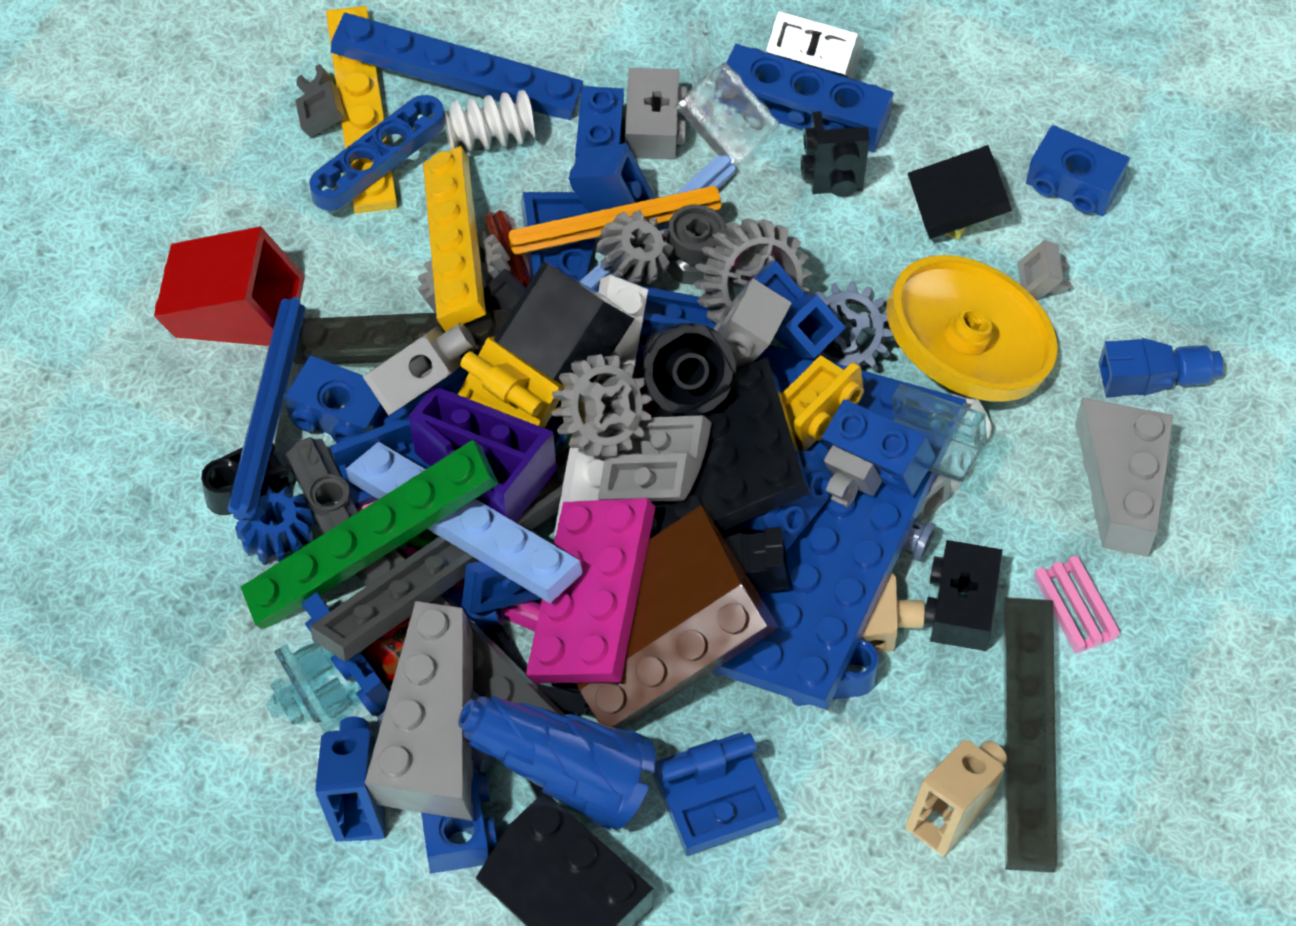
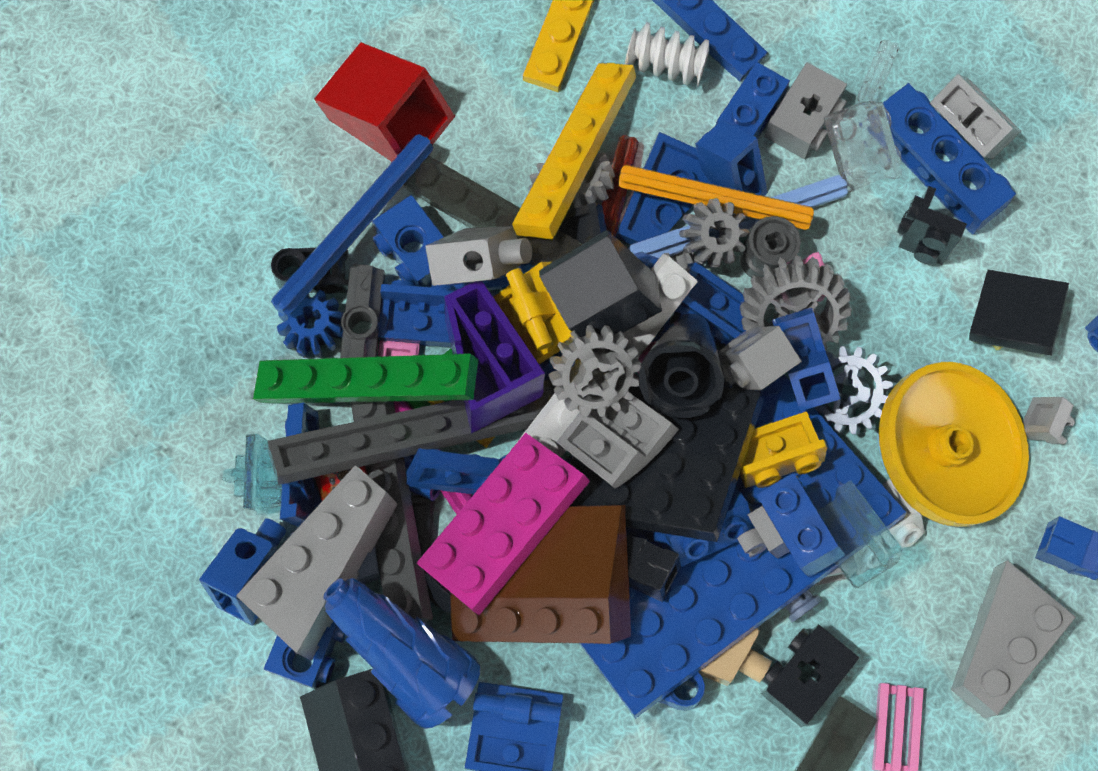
camera: 30 degrees right, 15 degrees up
(372, 148) = (560, 32): blue beam -> none
(476, 529) = (444, 420): light blue plate -> none

